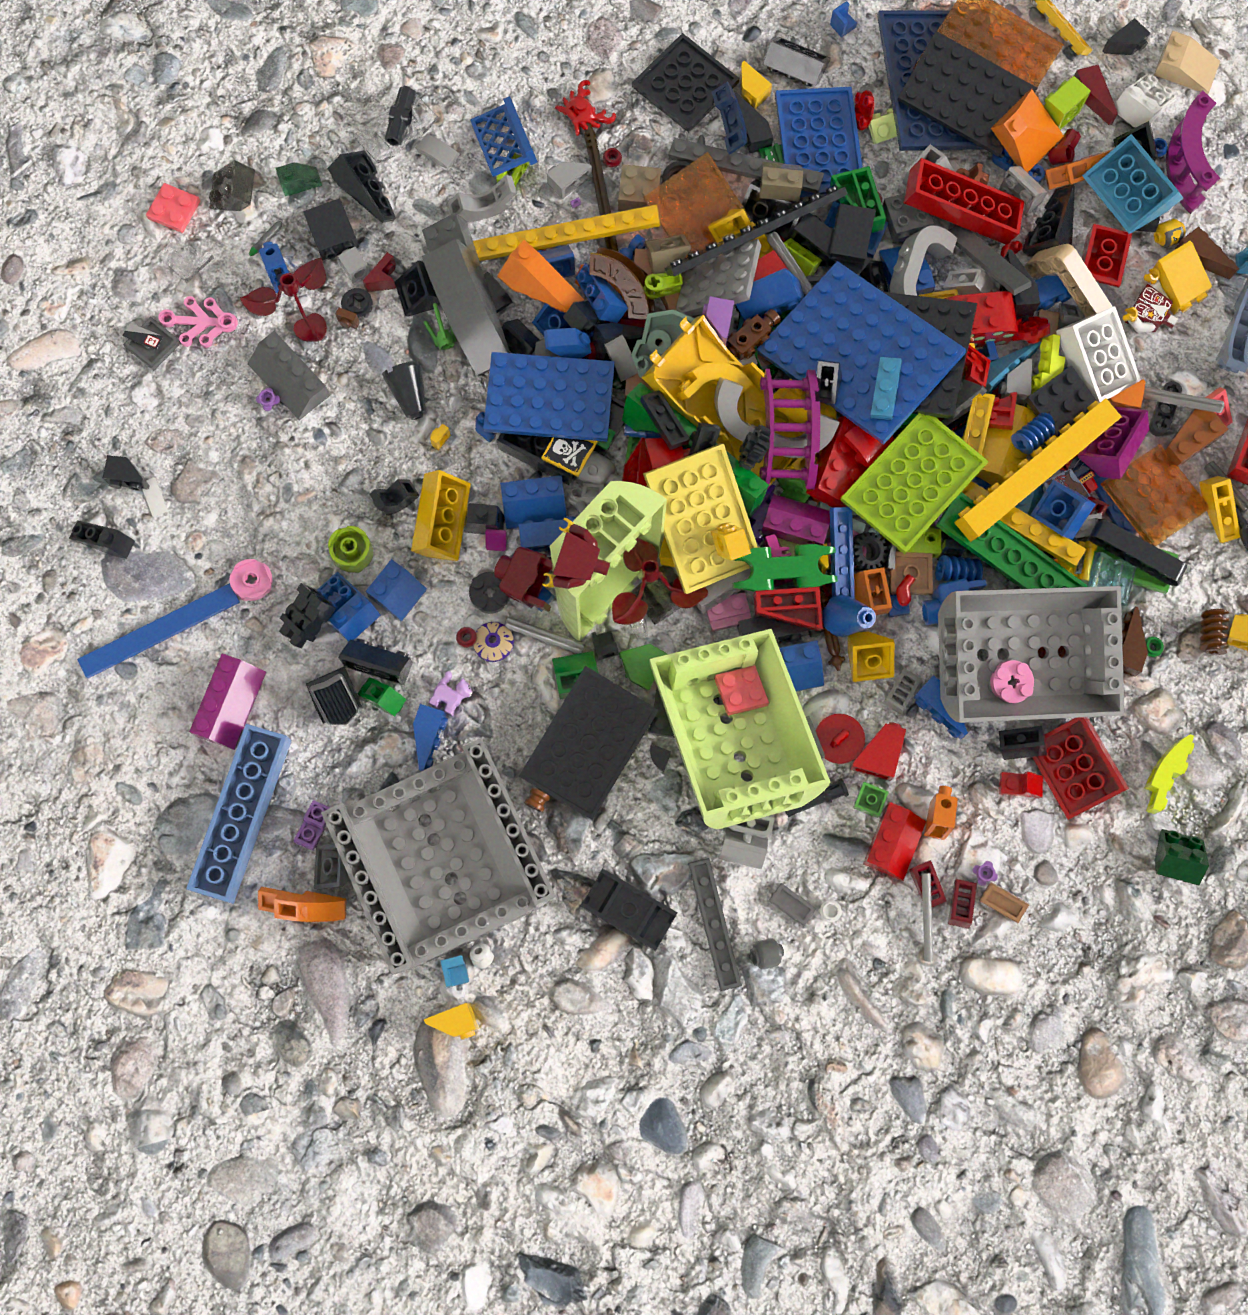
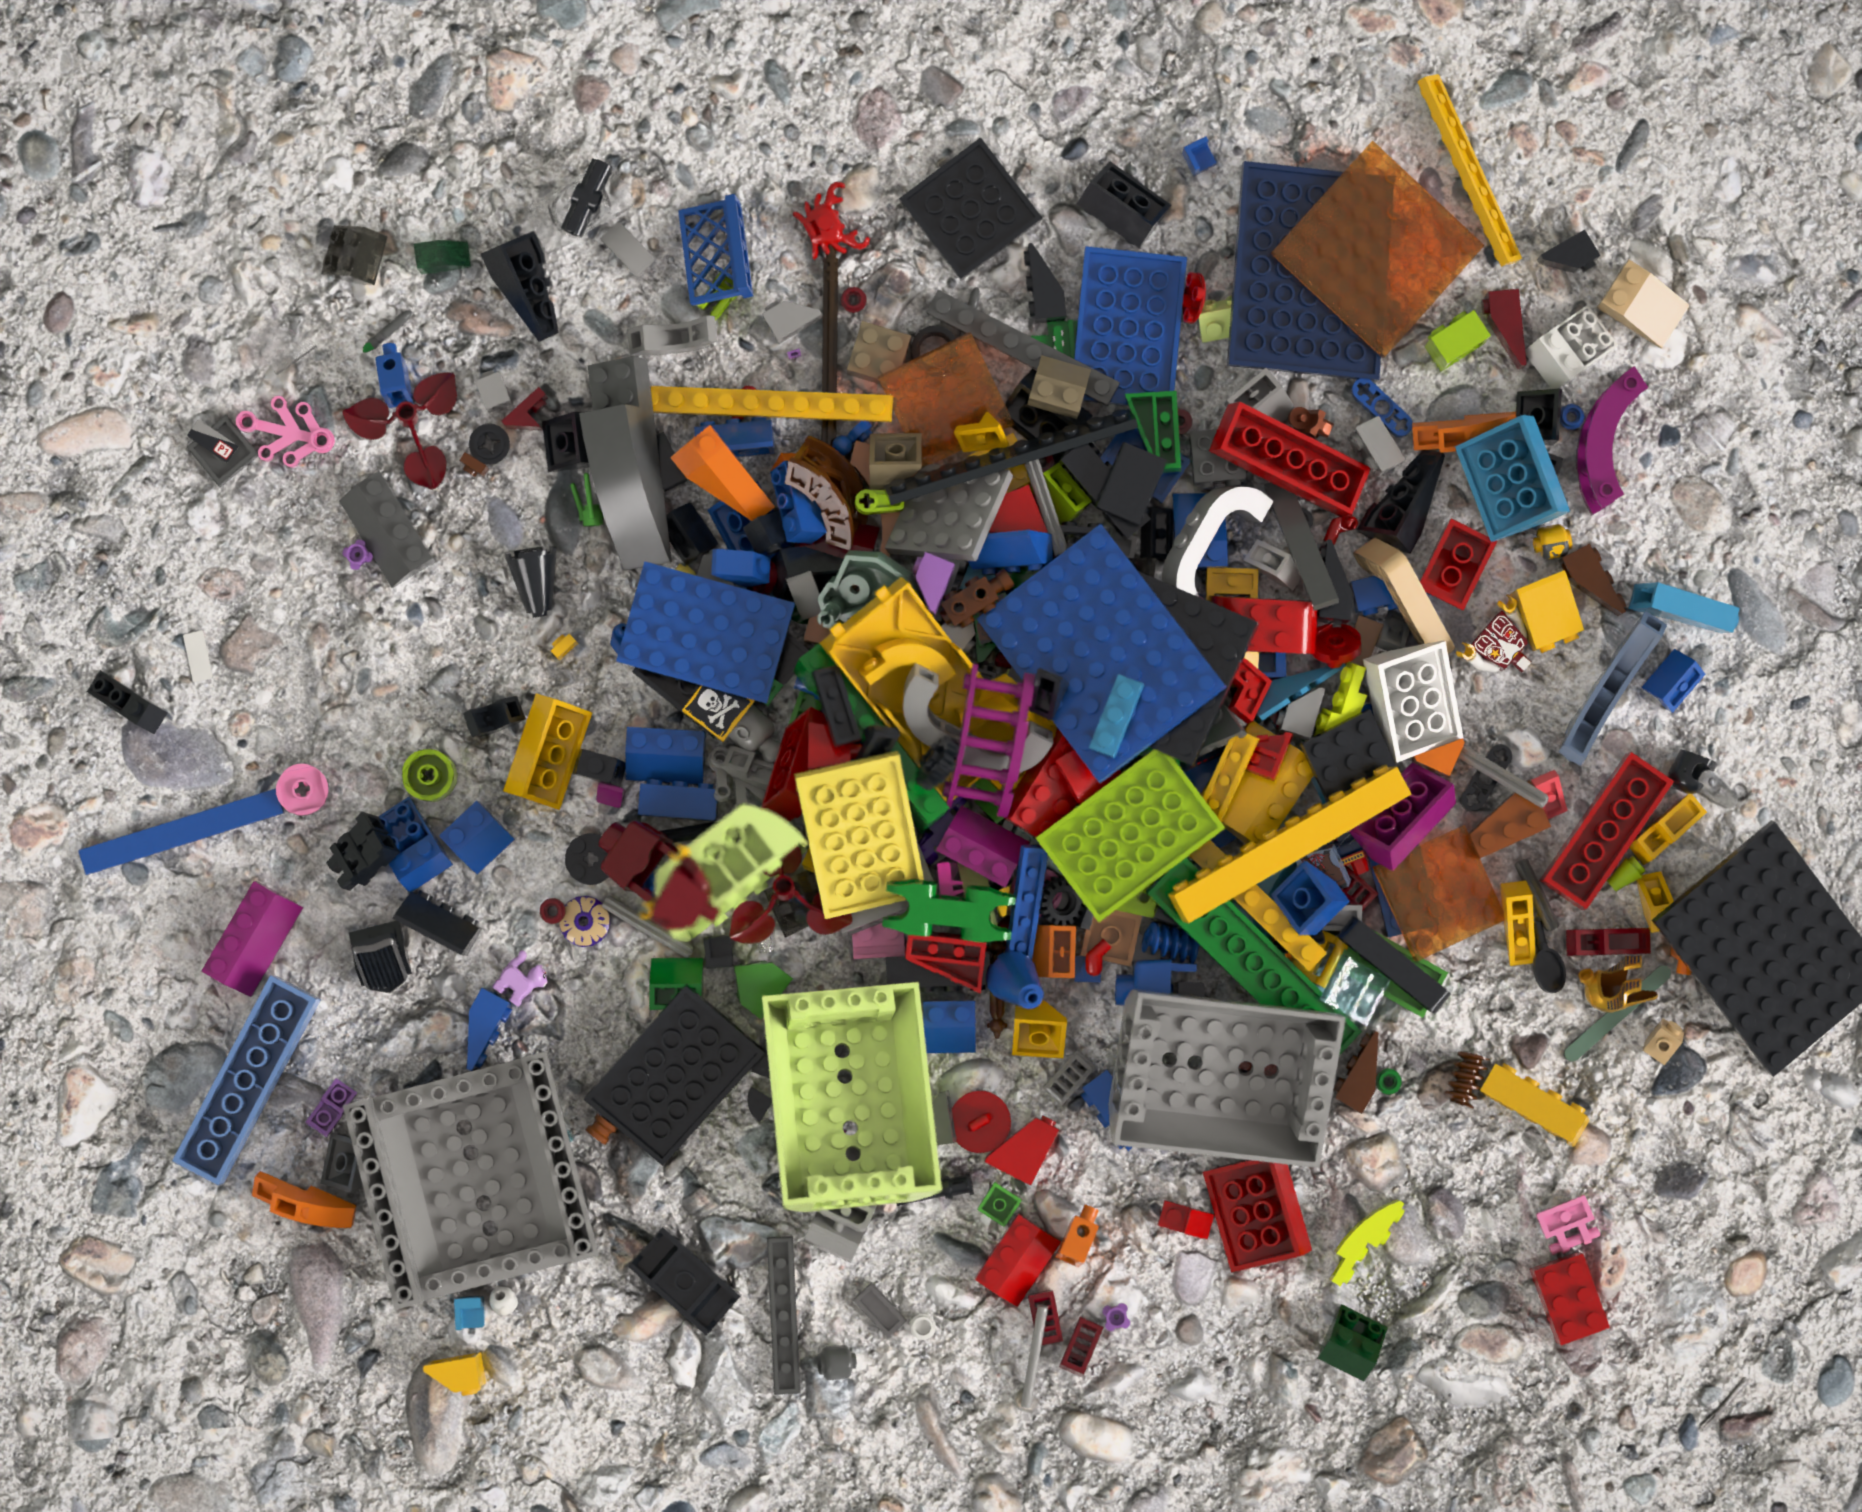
camera: 15 degrees right, 10 degrees up
(123, 473) = (166, 621): black slope -> none
(173, 207) = (275, 266): coral plate -> none
(330, 229) = (472, 337): black panel -> none
(382, 696) = (437, 967): green slope -> none
(730, 541) = (885, 874): yellow brick -> none
(731, 116) = (1019, 281): dark blue slope -> none
(741, 690) = (869, 1046): coral plate -> none
(753, 86) = (1057, 233): yellow slope -> none
(963, 91) = (1330, 306): black plate -> none
(1004, 902) = (1130, 1355): medium nougat tile -> none
(1022, 742) = (1195, 1173): black brick -> none
(1023, 686) = (1186, 1089): bright pink plate -> none
(1027, 131) = (1398, 373): orange slope -> none
(1034, 433) = (1297, 793): blue piece -> none
(1065, 149) = (1444, 403): dark red piece -> none

